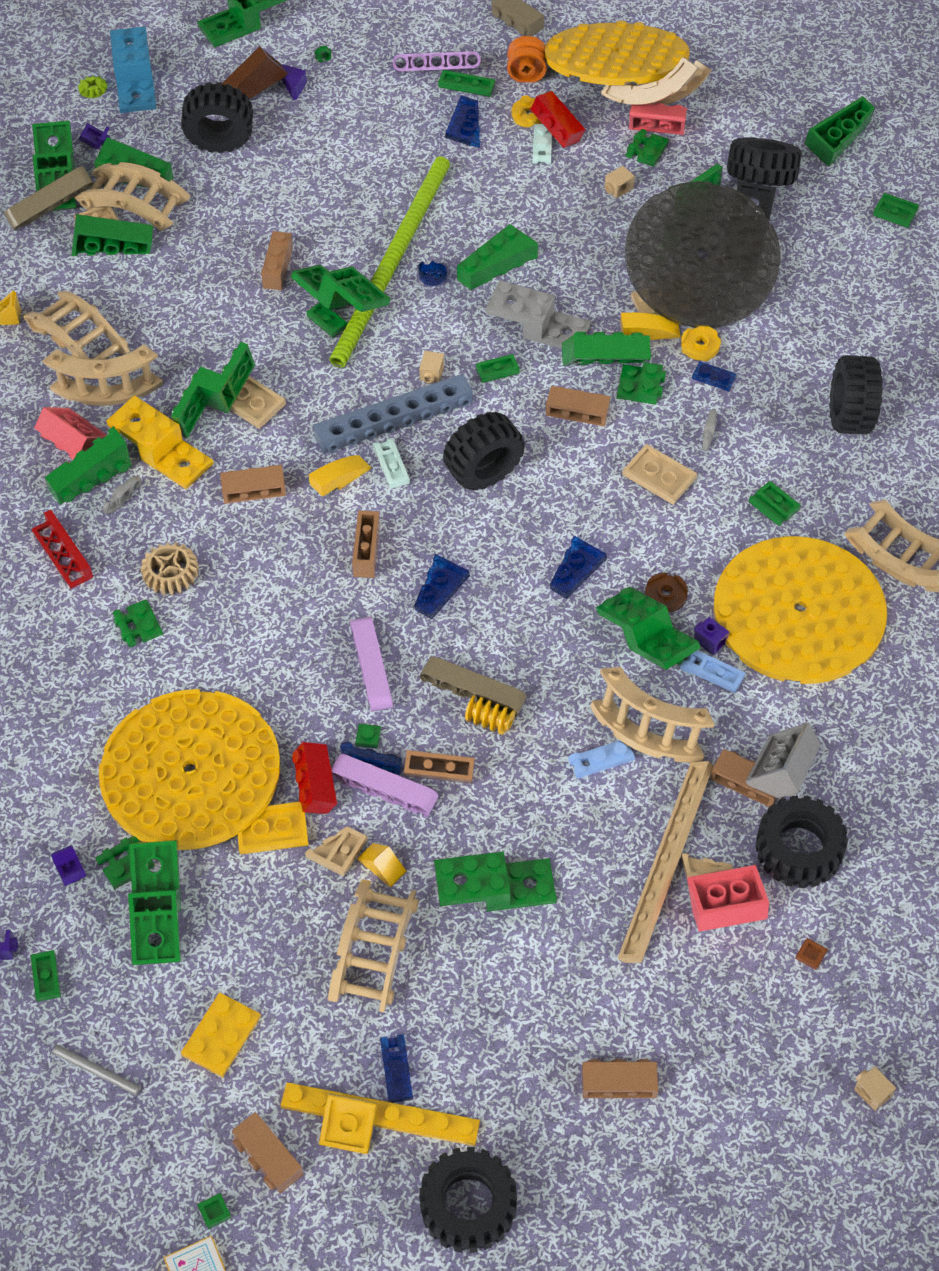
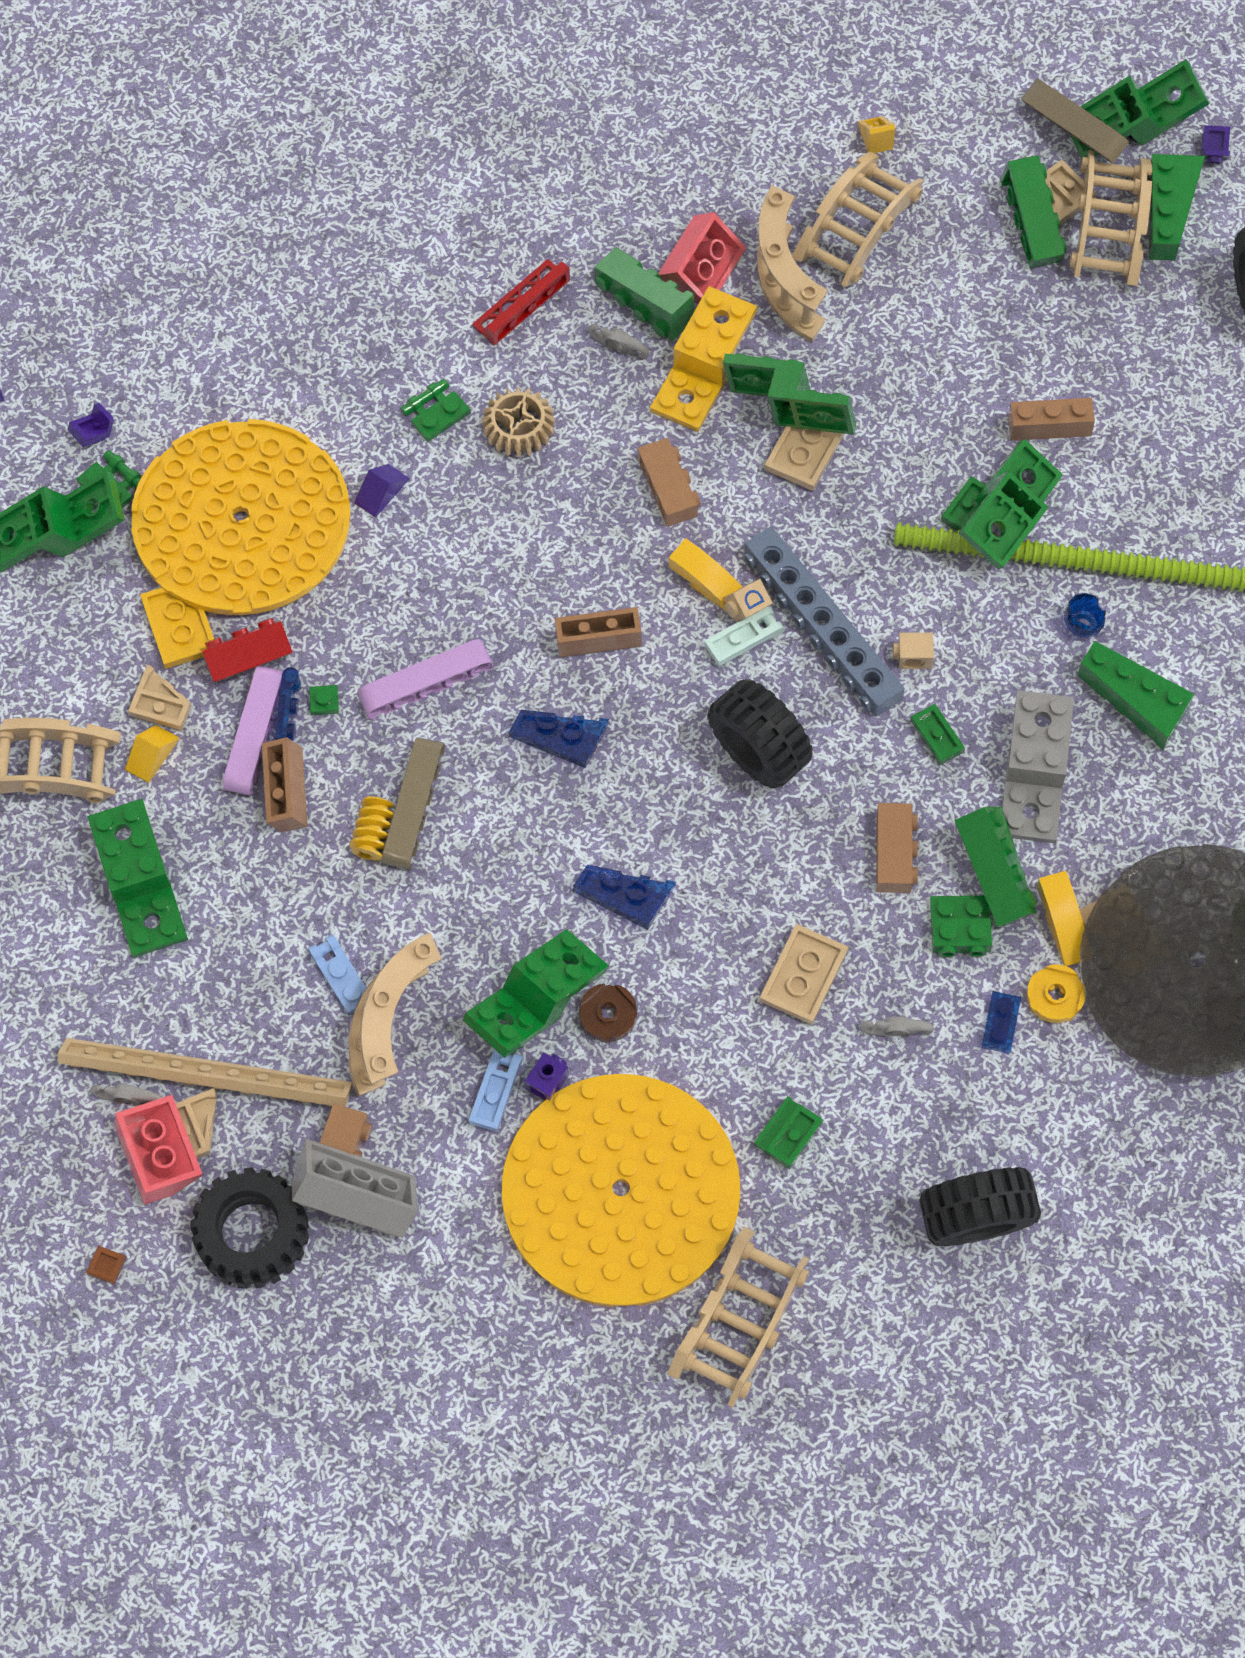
camera: 80 degrees right, 10 degrees up
(196, 669) = (379, 488): none -> dark purple slope
(366, 451) = (747, 600): none -> tan brick
(674, 918) = (125, 1093): none -> light grey piece

